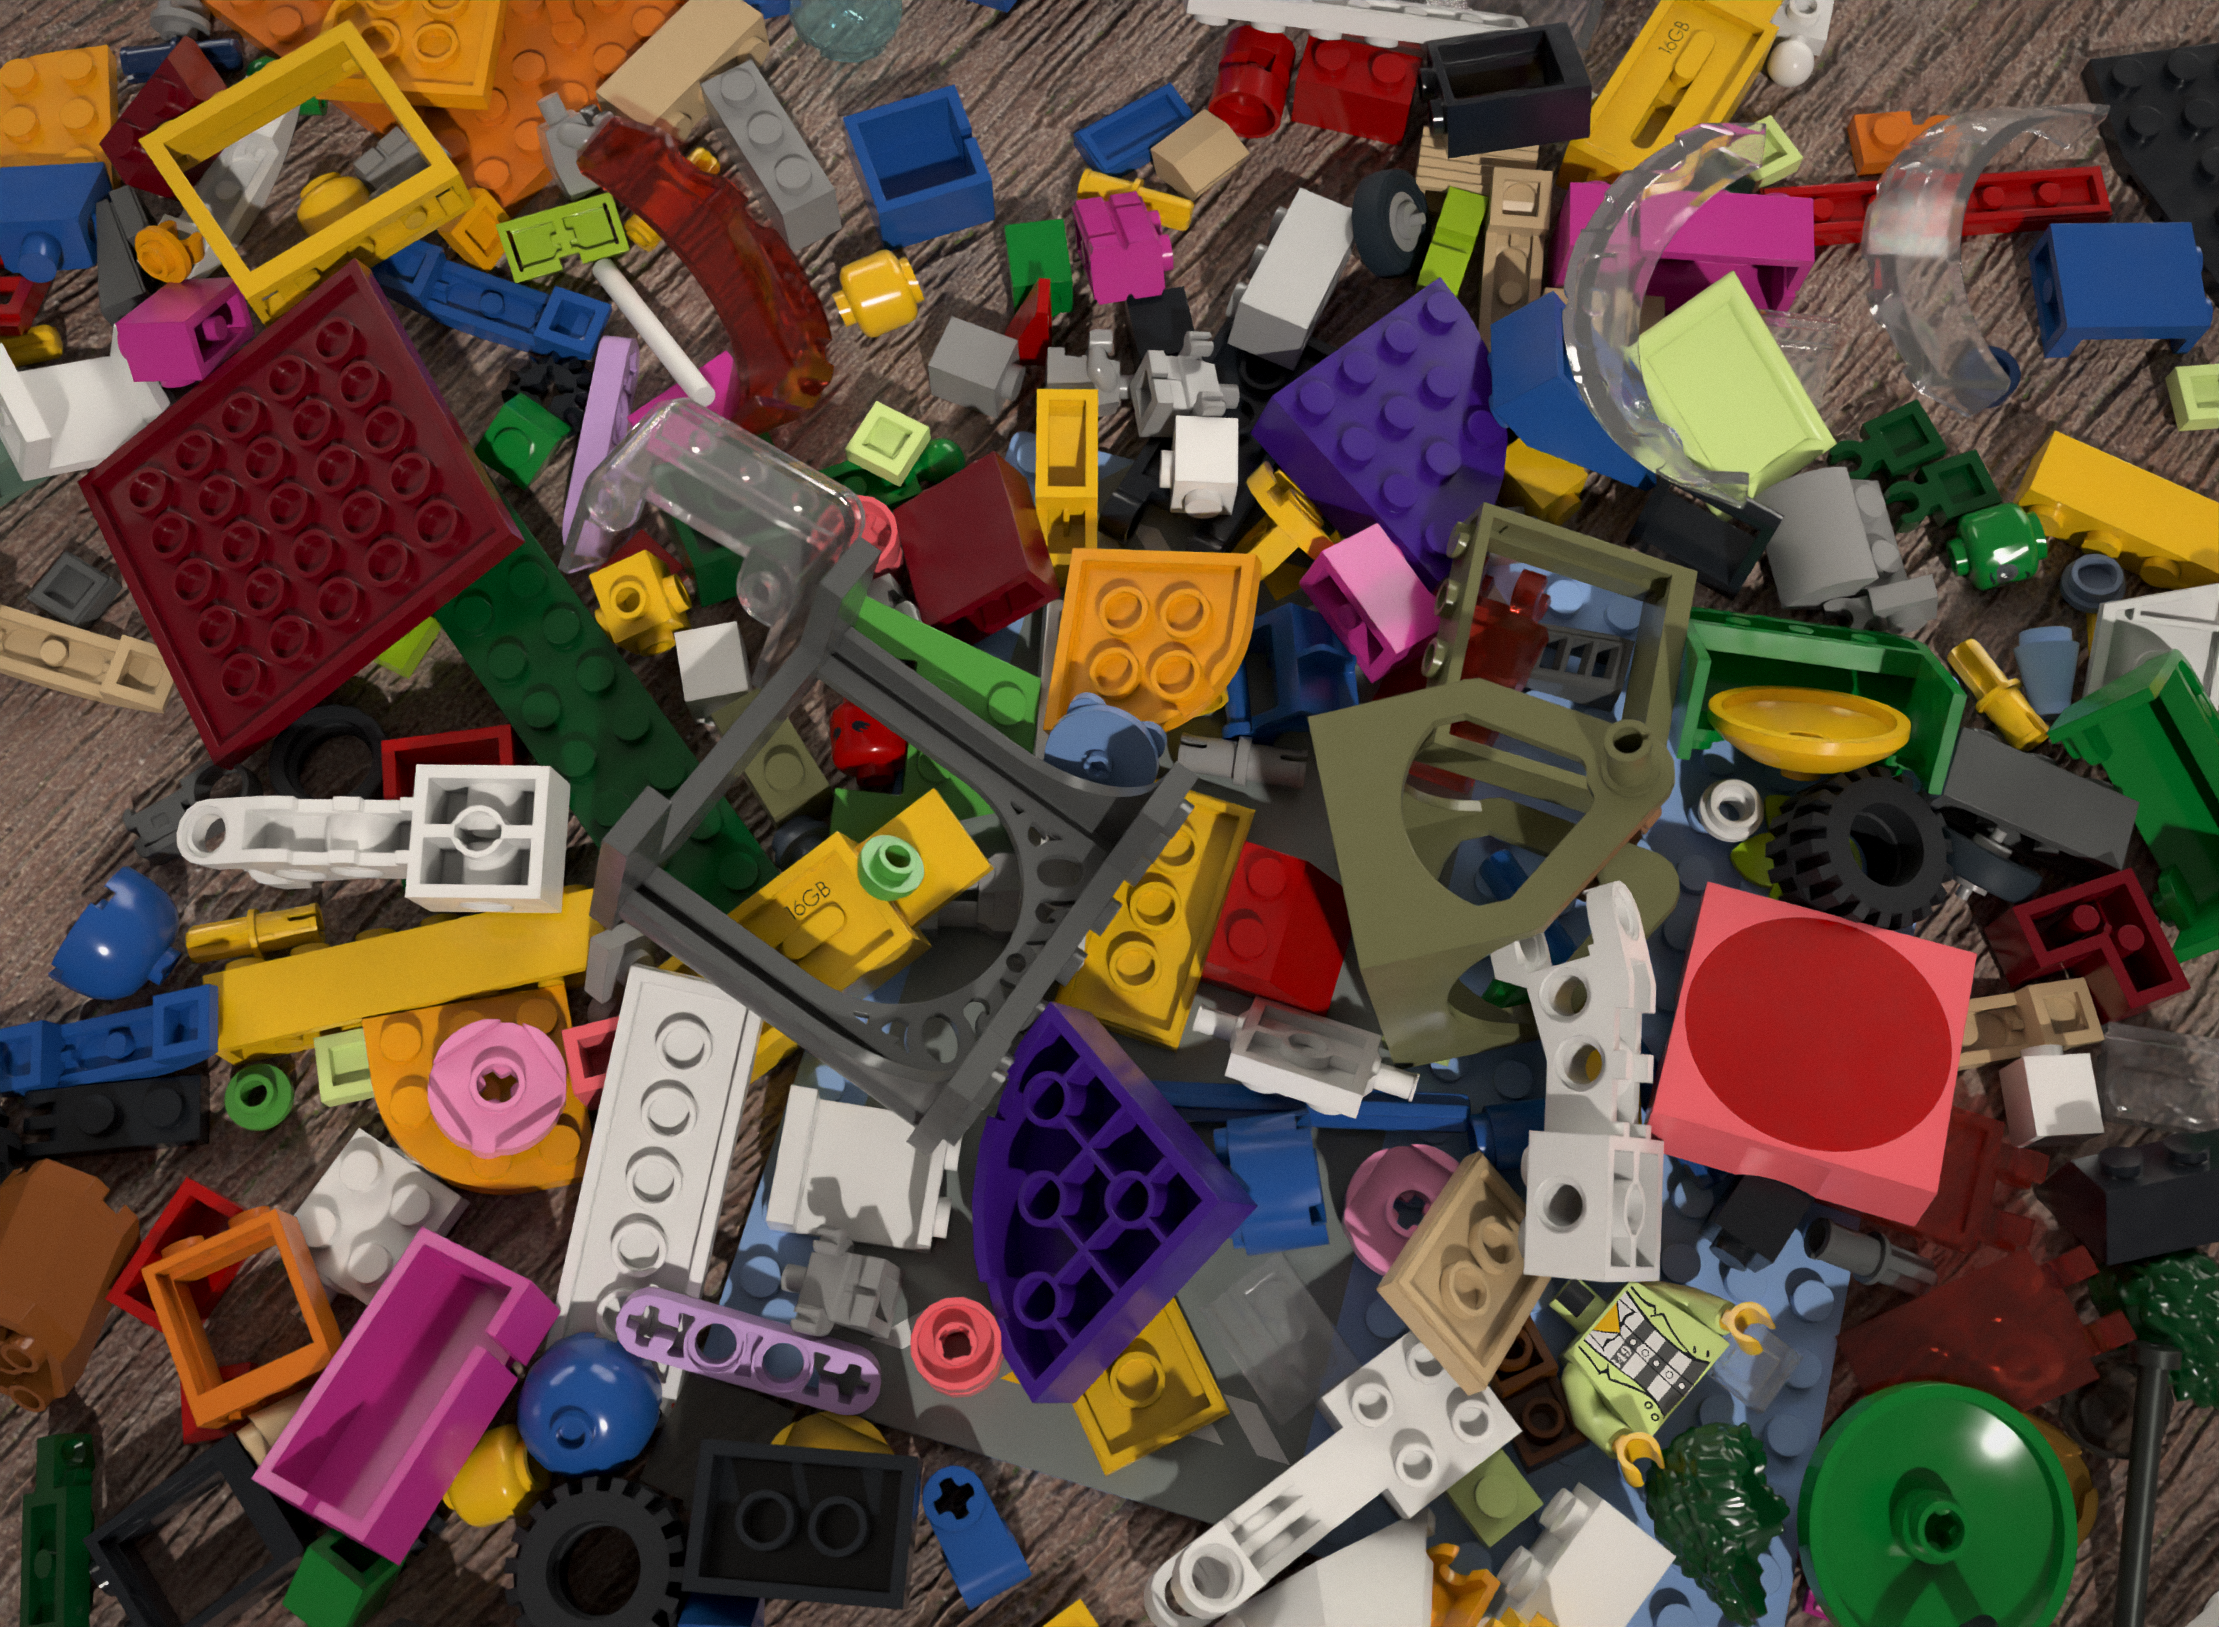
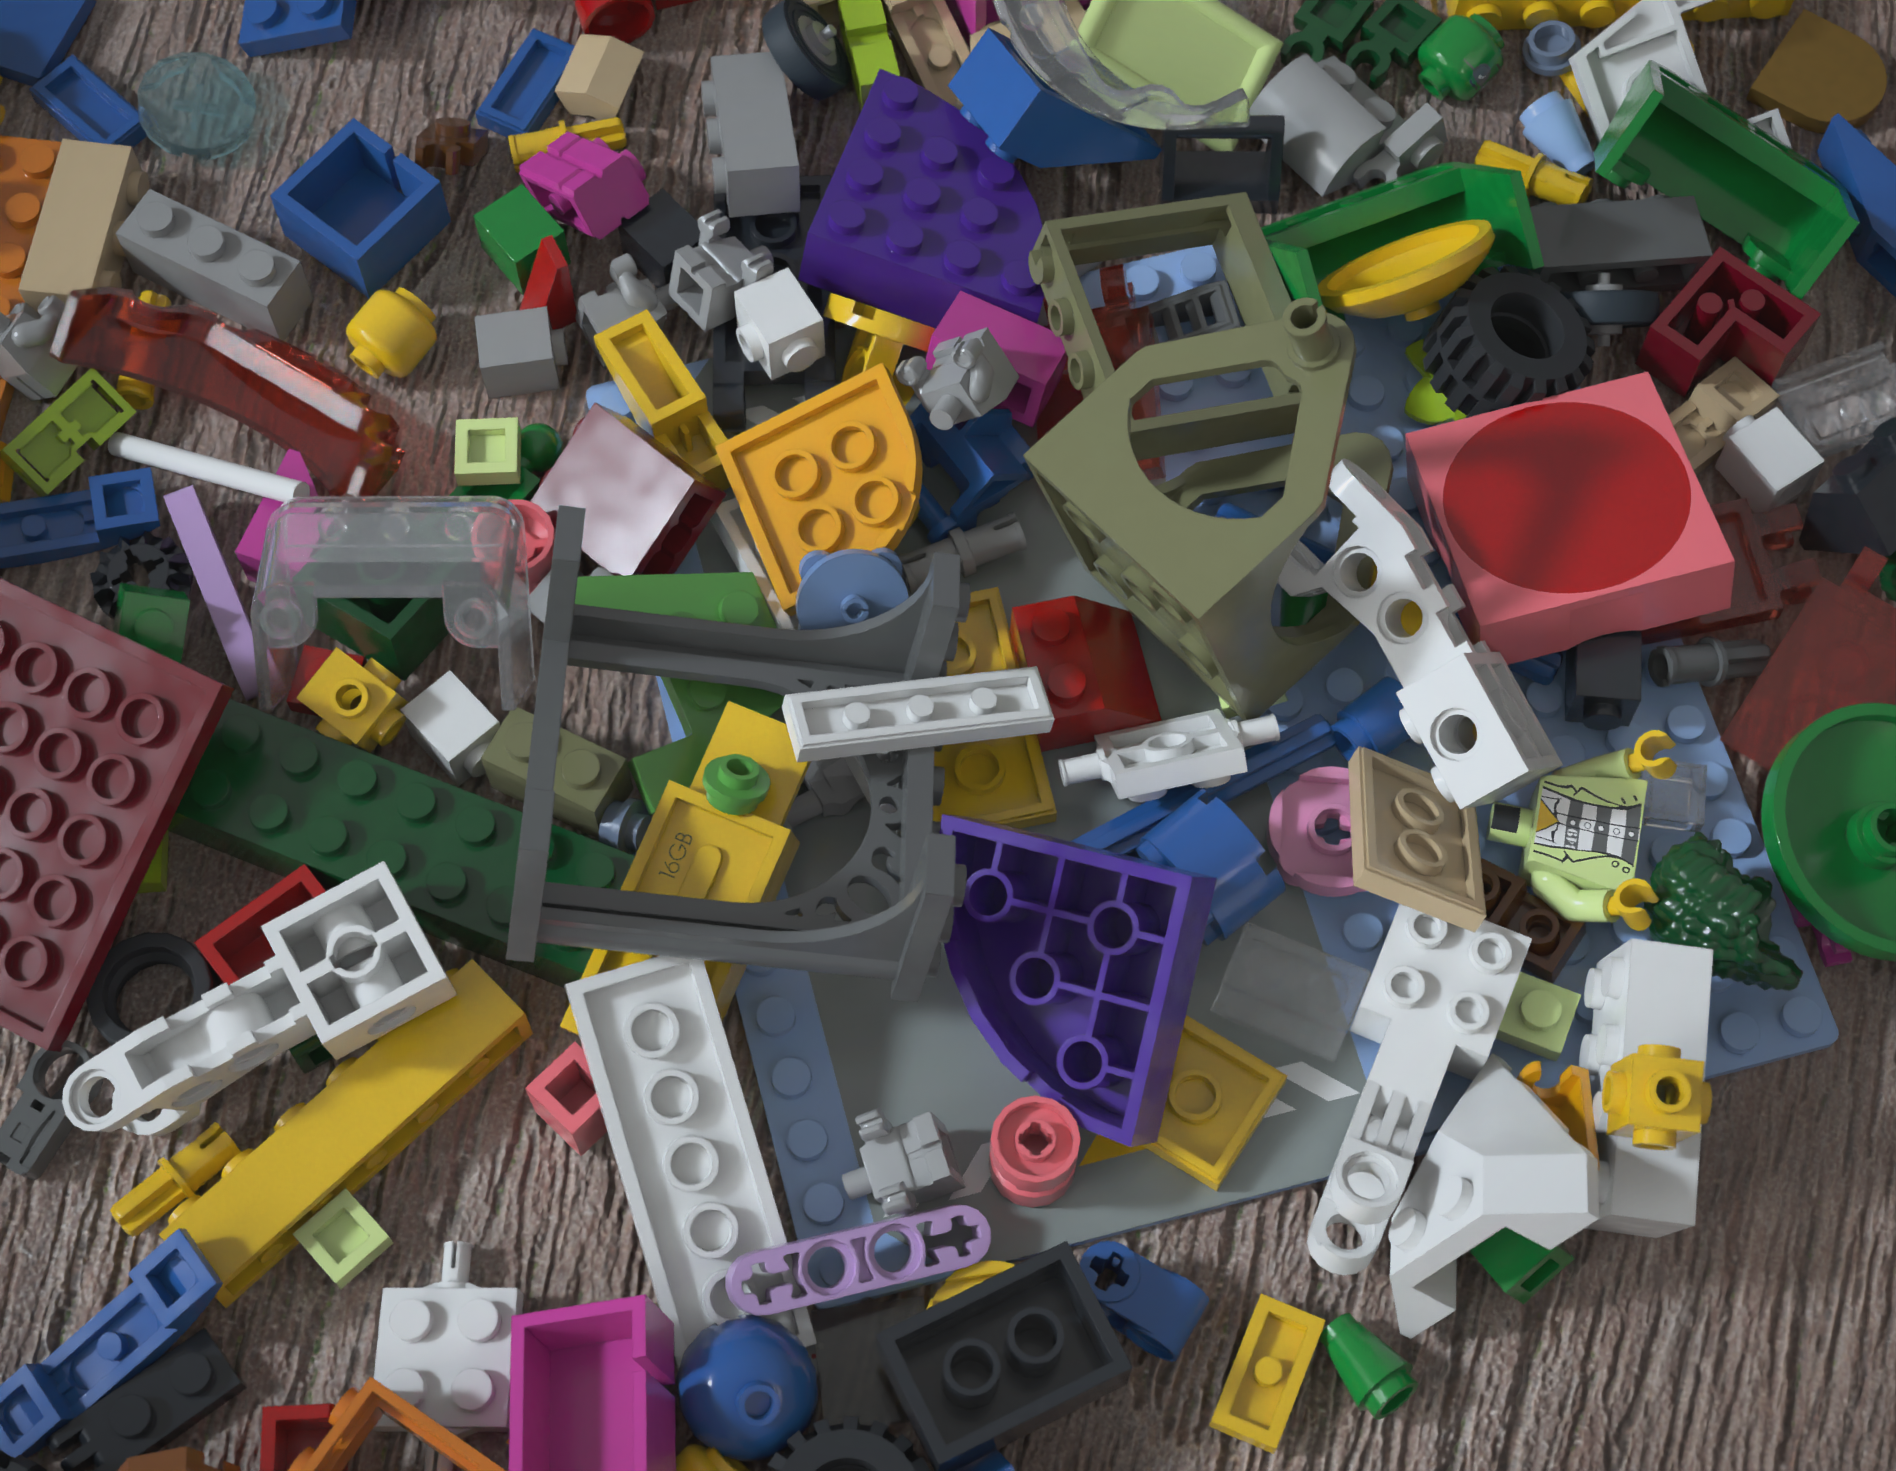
camera: 30 degrees left, 5 degrees down
(120, 940) = (58, 1251): blue cylinder -> none
(274, 1107) = (285, 1330): bright green plate -> none
(400, 1062) = (479, 1189): light orange plate -> none
(492, 1126) = (503, 1207): bright pink plate -> none
(609, 967) = (536, 1011): light grey plate -> none
(858, 1174) = (856, 1061): white panel -> none
(864, 746) = (629, 709): red head -> none
(1031, 150) = (450, 144): none -> reddish brown plate
(1089, 895) = (917, 714): none -> white tile
(1324, 611) = (964, 381): none -> light grey piece
(1541, 484) = (1066, 190): yellow brick -> none
(1739, 795) = (1385, 360): white plate -> none

